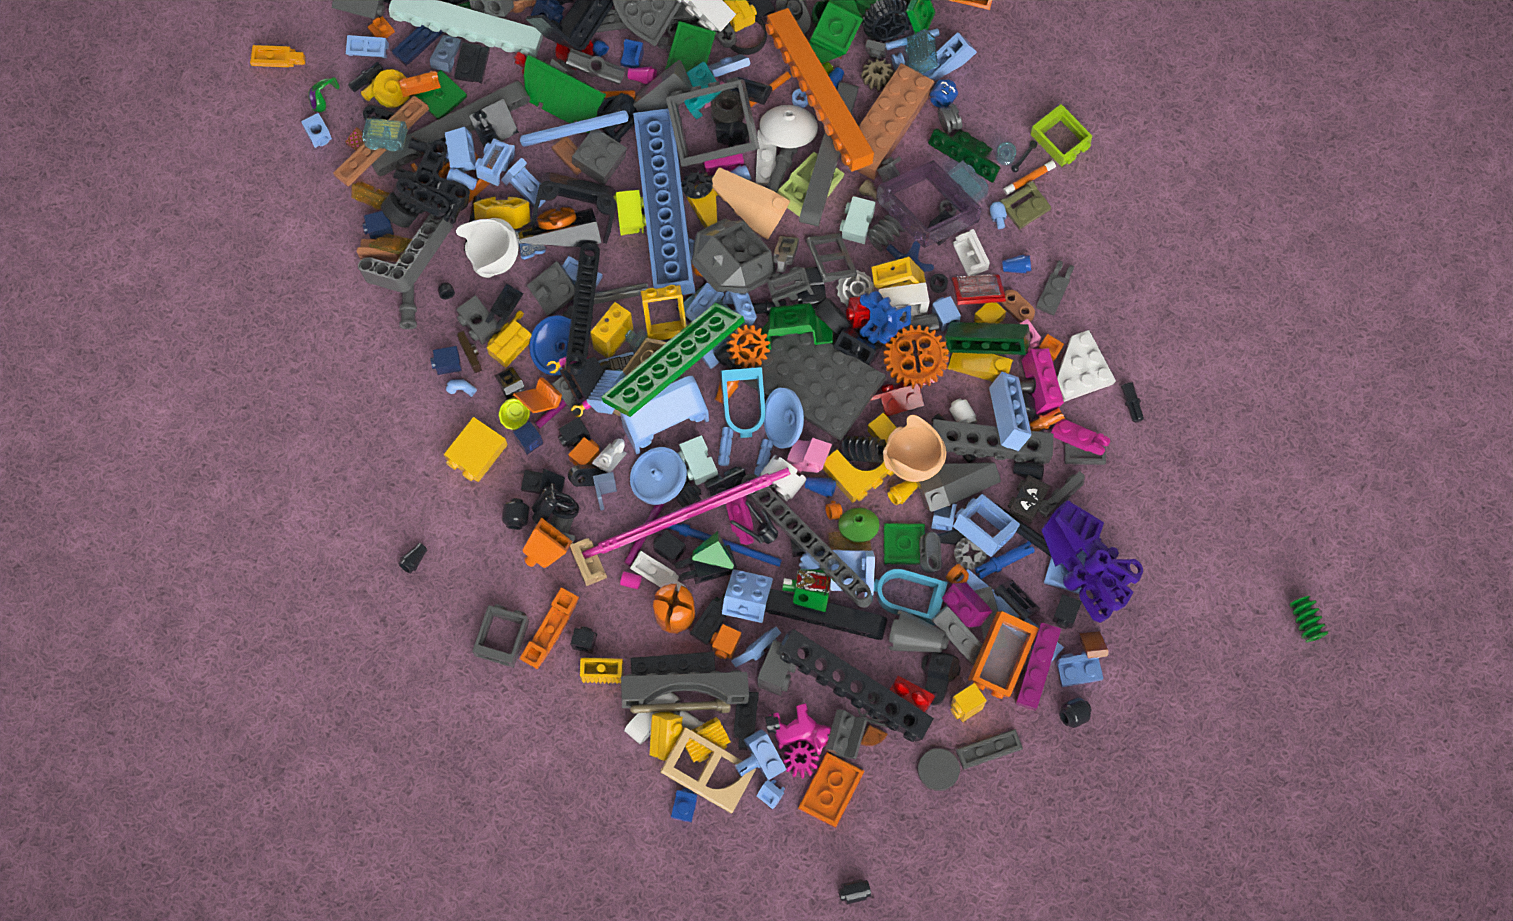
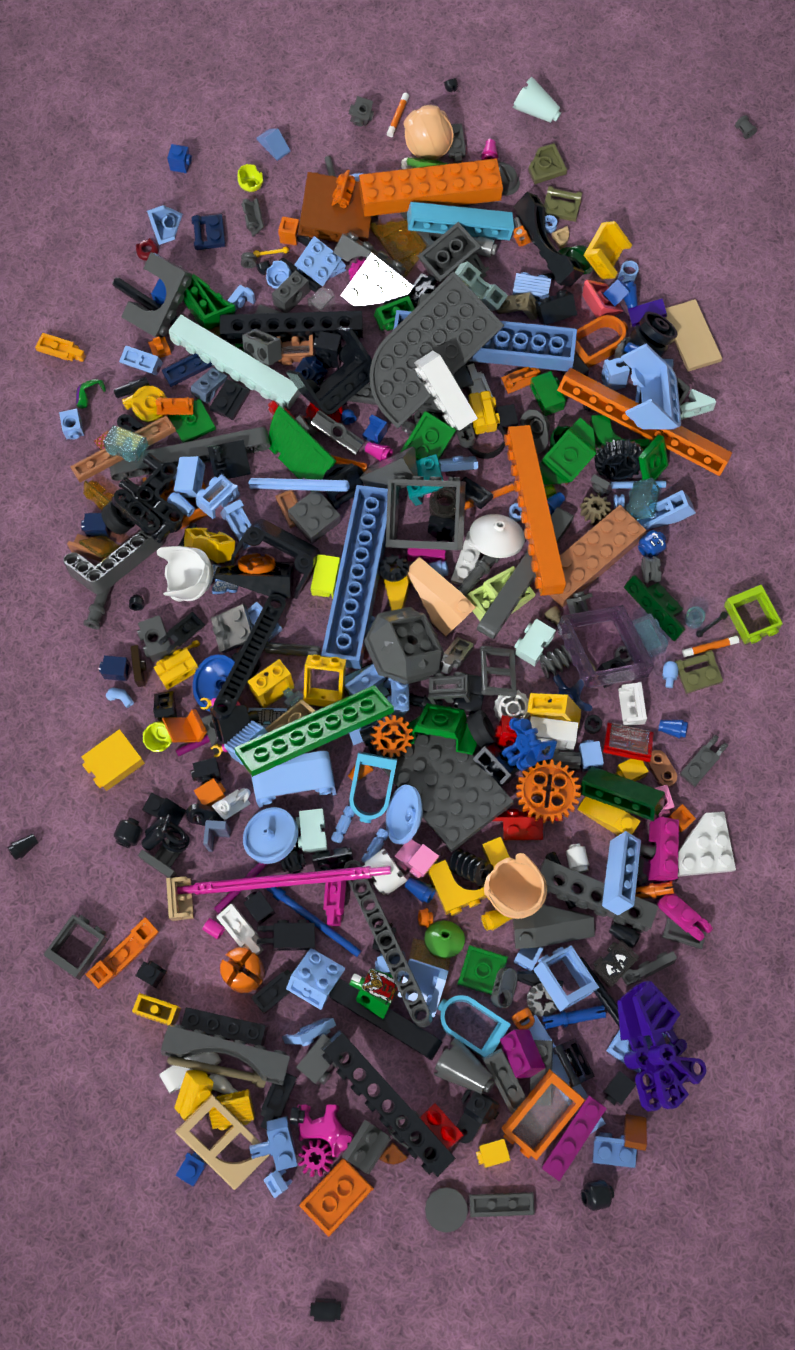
camera: 20 degrees right, 0 degrees up
(528, 437) = (163, 763): dark blue brick -> none
(545, 545) = (143, 872): orange torso -> none
(713, 552) = (295, 928): slope -> none
(725, 642) = (281, 1017): orange brick -> none
(766, 531) = (353, 919): black plant -> none
(1132, 402) = (746, 896): black axle -> none

